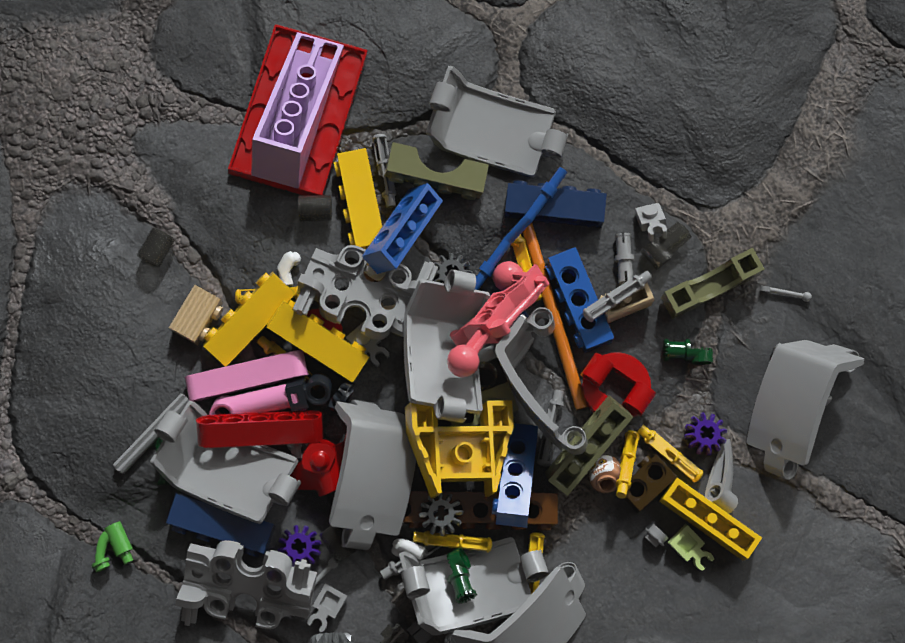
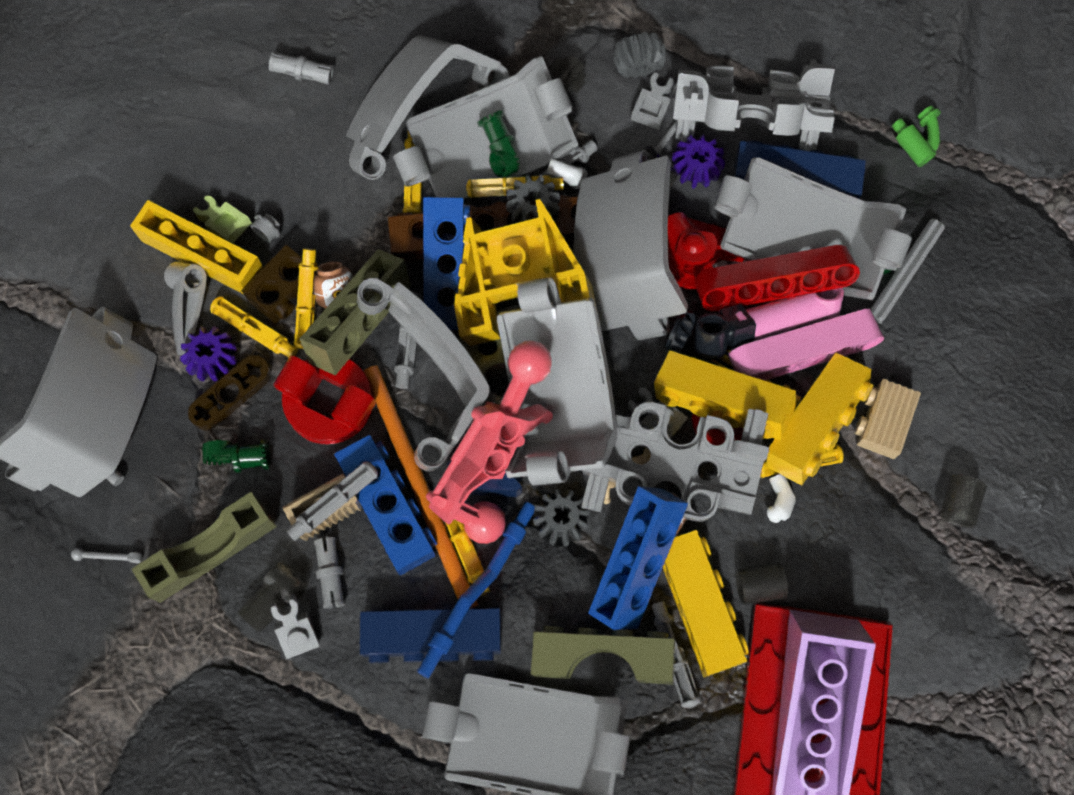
camera: 175 degrees right, 5 degrees down
(701, 387) = (230, 378): none -> dark brown beam

